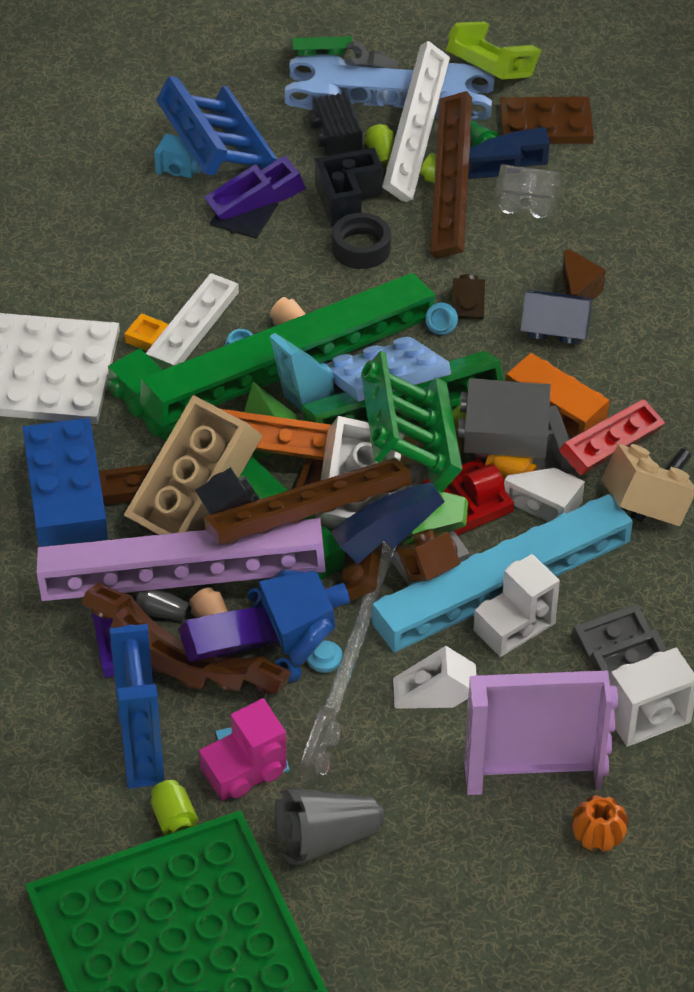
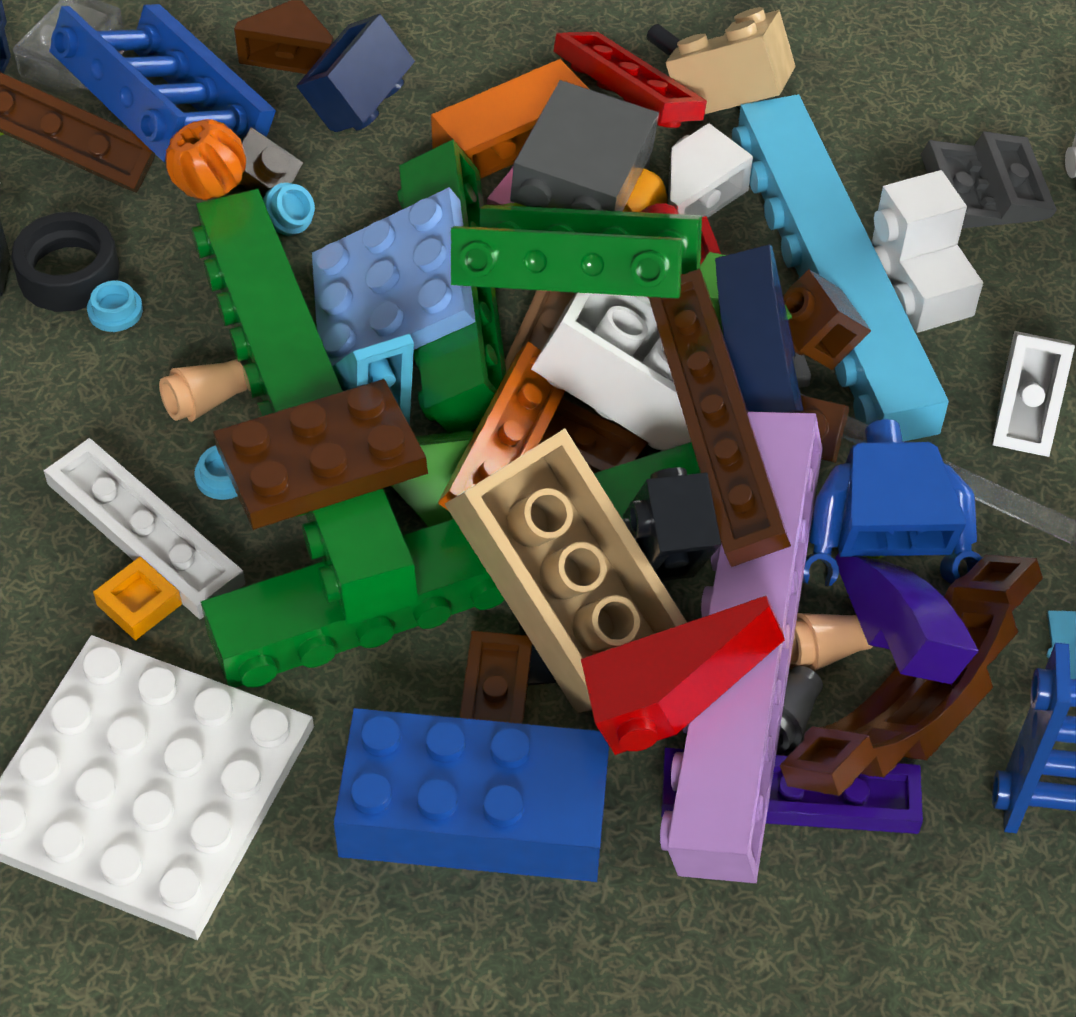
camera: 75 degrees left, 5 degrees up
(126, 518) = (672, 676): none -> red slope
(225, 352) = (319, 453): none -> reddish brown plate
(339, 270) = (114, 306): none -> medium azure plate
(436, 261) = (205, 159): none -> orange piece
(515, 257) = (166, 52): none -> blue fence

